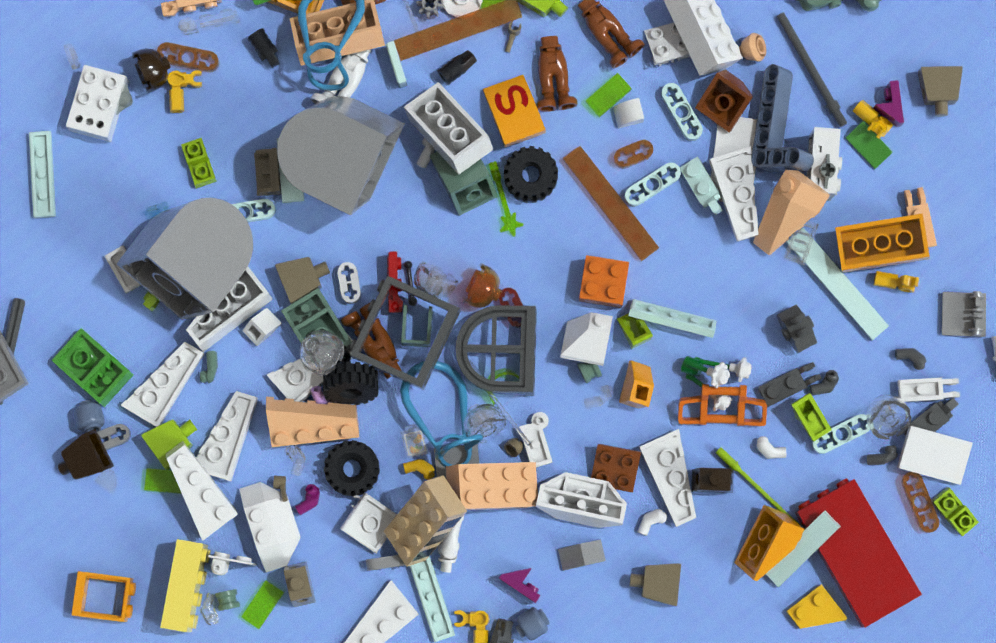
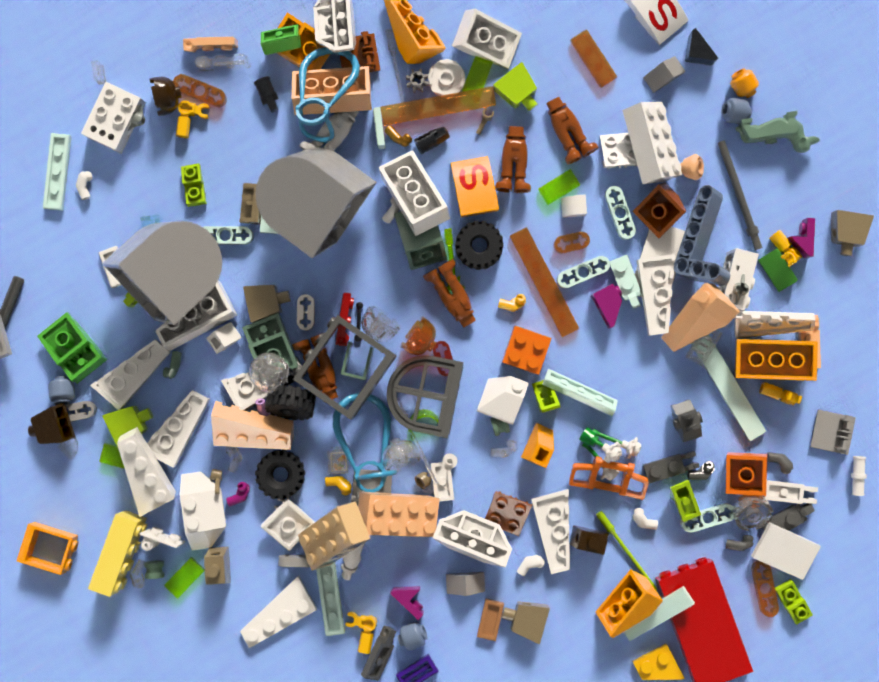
camera: 10 degrees right, 5 degrees up
(73, 181) = (81, 183): none -> white arm
(417, 71) = (397, 138): none -> pearl gold arm
(518, 242) = (457, 302): none -> dark orange piece
(581, 233) = (513, 305): none -> yellow arm
(617, 591) = (490, 619): none -> medium nougat tile
(686, 214) = (608, 303): none -> magenta slope
(864, 205) = (771, 323): none -> white wing
(874, 375) = (746, 474): none -> orange brick

